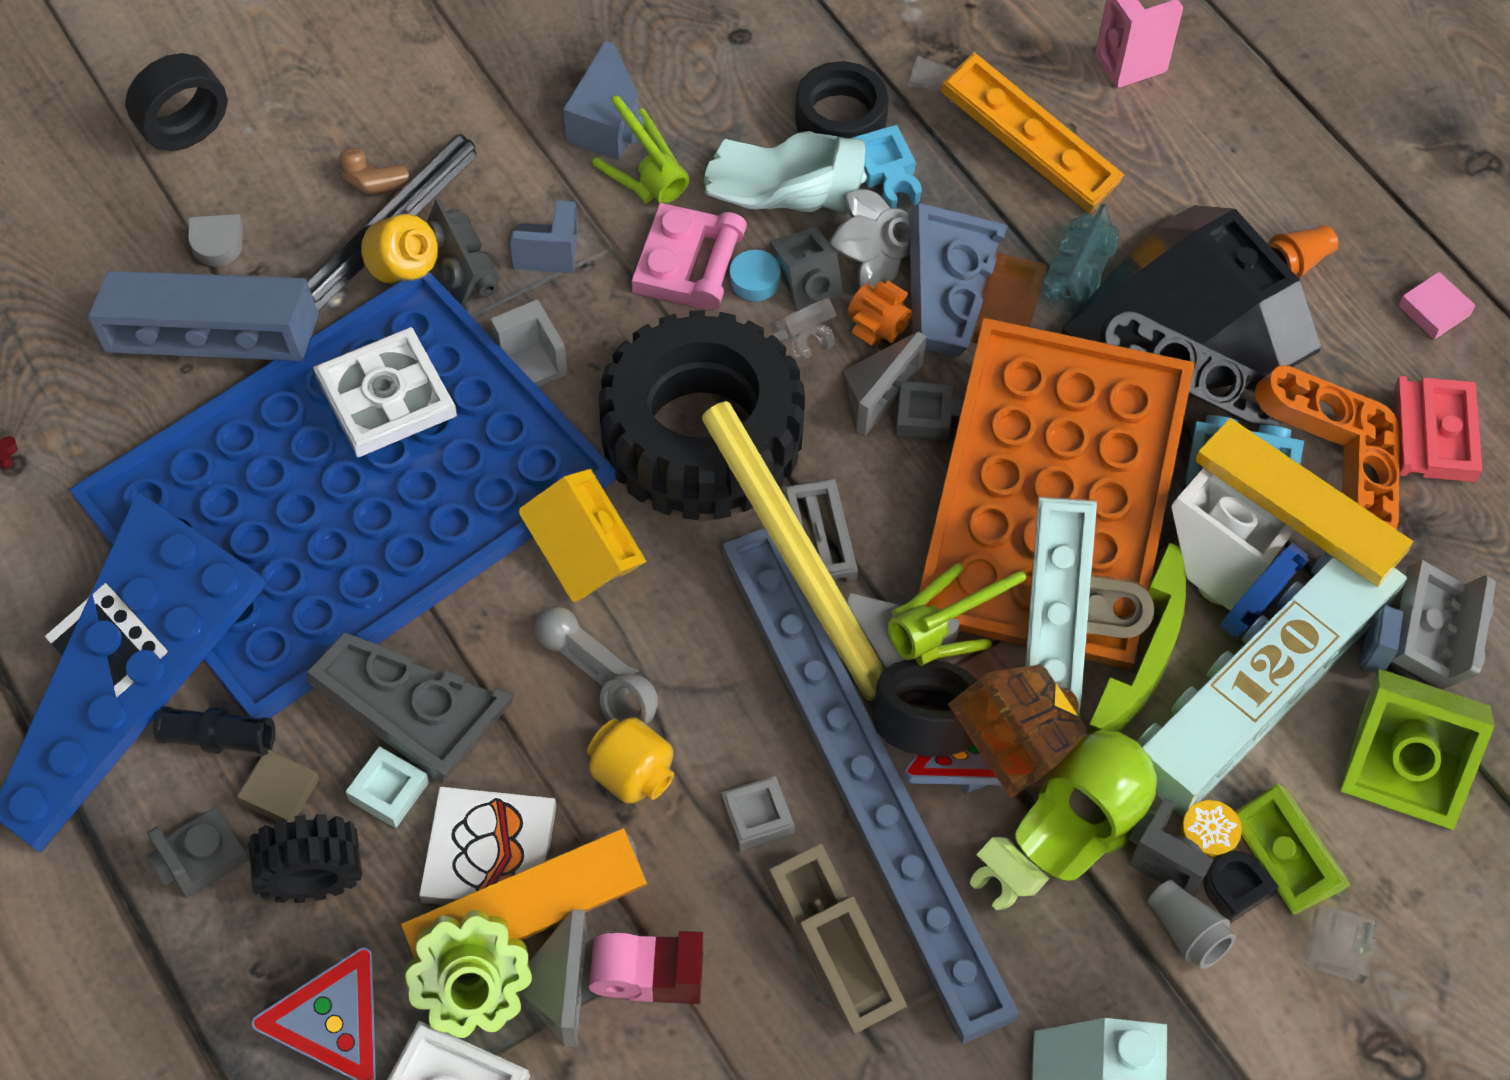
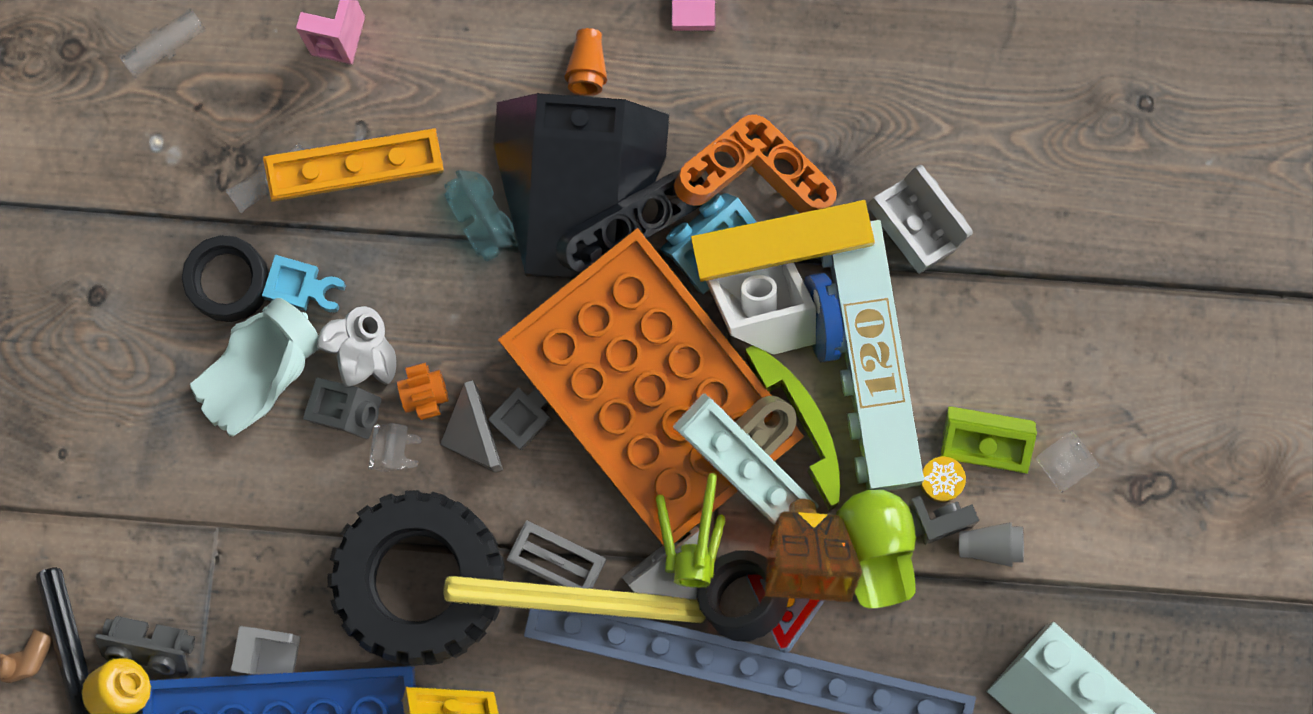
camera: 45 degrees left, 20 degrees up
(547, 246) = (181, 575): sand blue panel -> none
(590, 115) = (95, 448): sand blue slope -> none
(659, 171) = (186, 452): lime plant -> none
(673, 251) = (258, 492): bright pink plate -> none
(755, 275) = (320, 448): medium azure tile -> none
(949, 271) = (424, 317): sand blue wing -> none
(1012, 292) = (475, 290): clear orange tile -> none
(1012, 868) = (882, 626): yellowish green tile -> none
(1237, 884) = (987, 491): black tile -> none
(1381, 640) = (904, 269): sand blue tile -> none
(1417, 749) = (986, 308): lime slope -> none
(1438, 428) = (784, 93): coral plate -> none

